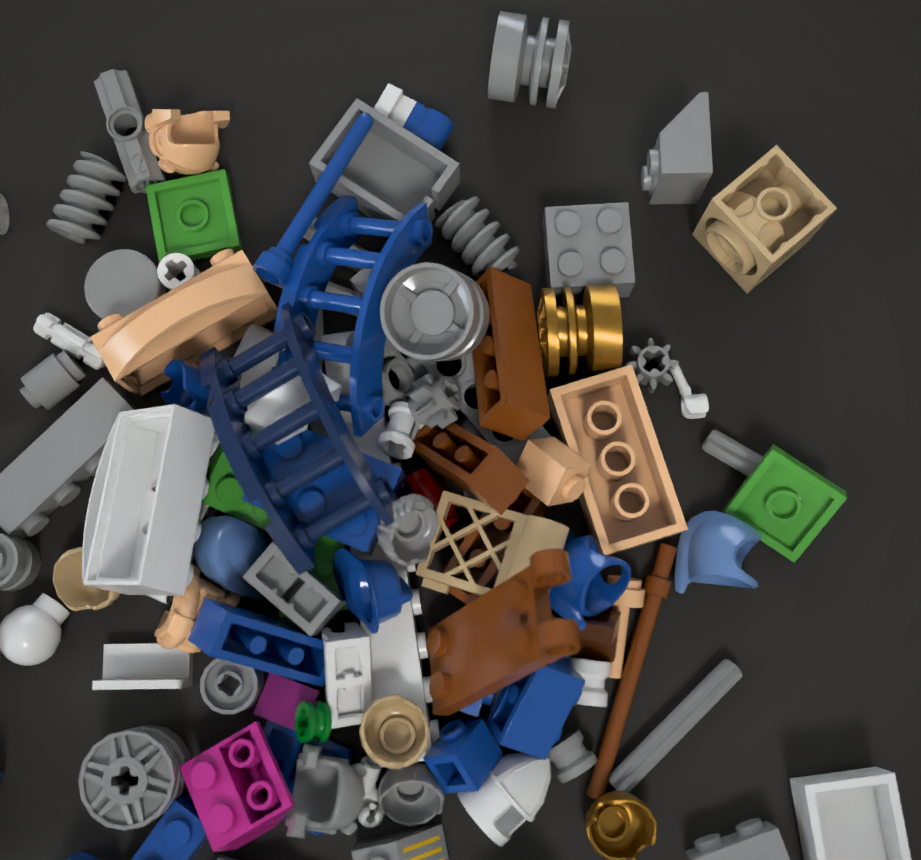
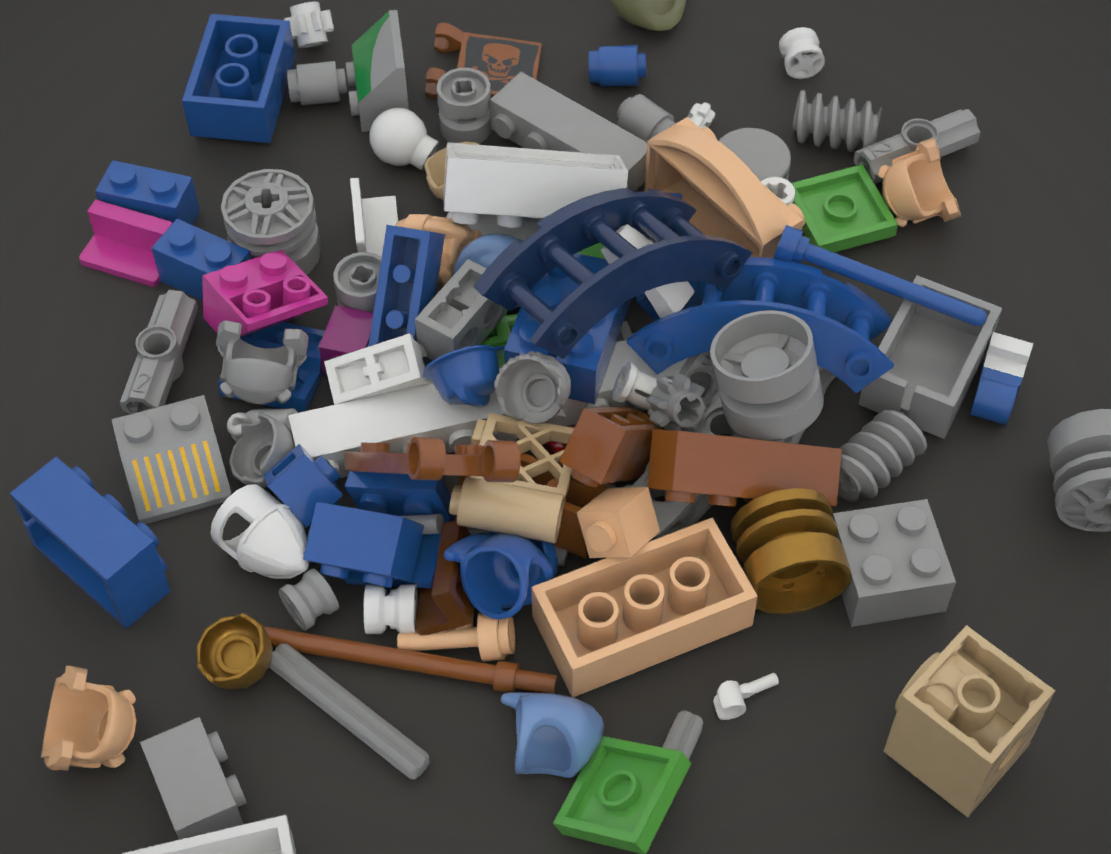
camera: 80 degrees right, 25 degrees down
(313, 721) = (330, 343): green bush -> none
(394, 732) = (324, 405): tan hair -> none
(645, 356) = (767, 643): light grey gear -> none
(681, 157) = (1043, 631): light grey slope -> none

